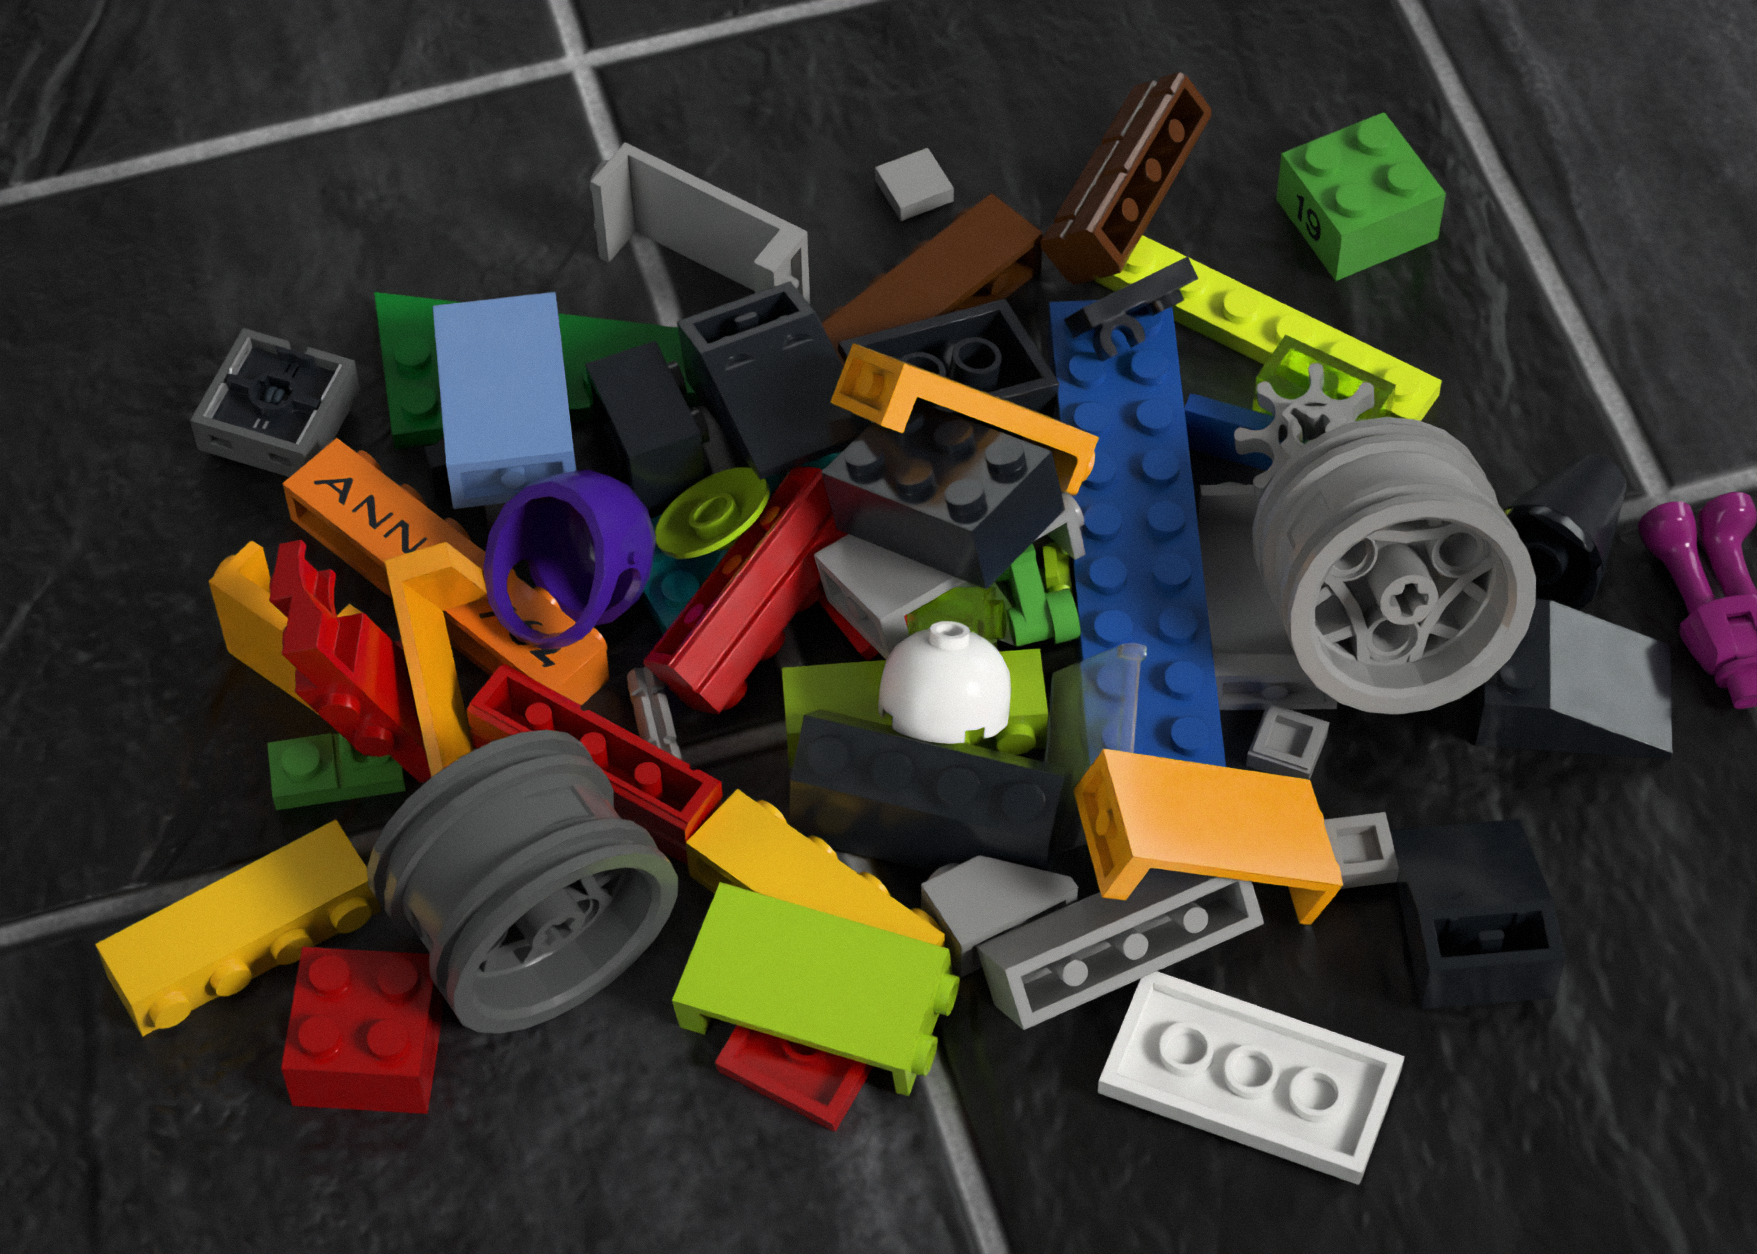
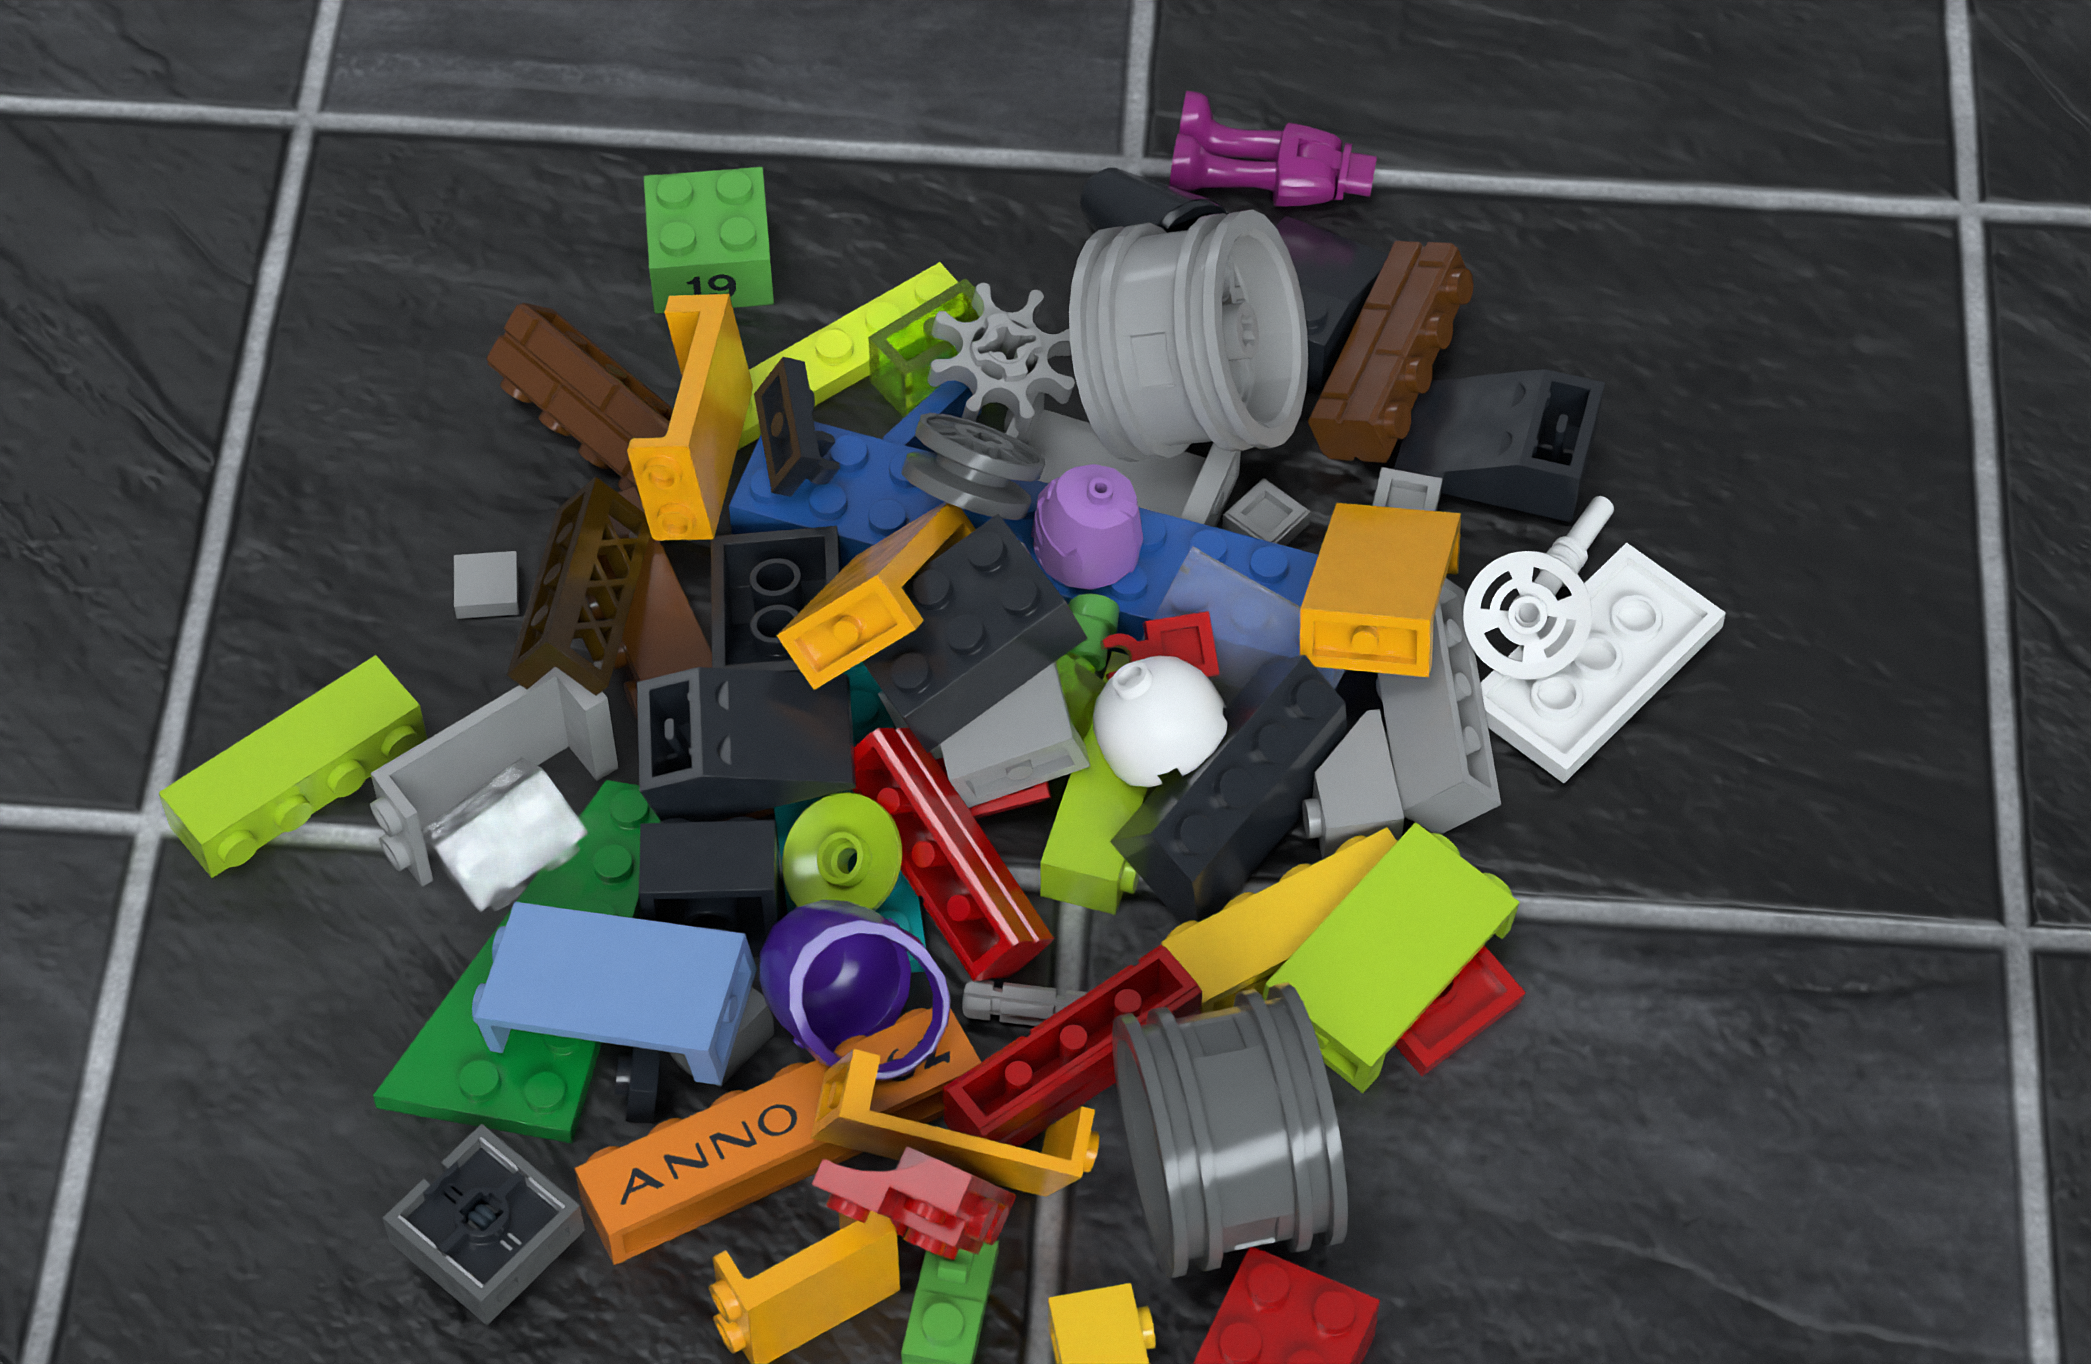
camera: 70 degrees left, 0 degrees up
(643, 276) = (504, 835): none -> clear slope
(669, 118) = (293, 766): none -> lime brick
(880, 197) = (571, 573): none -> dark brown fence
(1045, 681) = (1180, 636): none -> red plate
(1102, 233) = (689, 468): none -> light orange panel
(1130, 562) = (1088, 527): none -> medium lavender helmet
(1138, 439) = (973, 466): none -> dark grey wheel
(1262, 985) = (1537, 600): none -> white dish
(1533, 775) = (1391, 352): none -> reddish brown brick

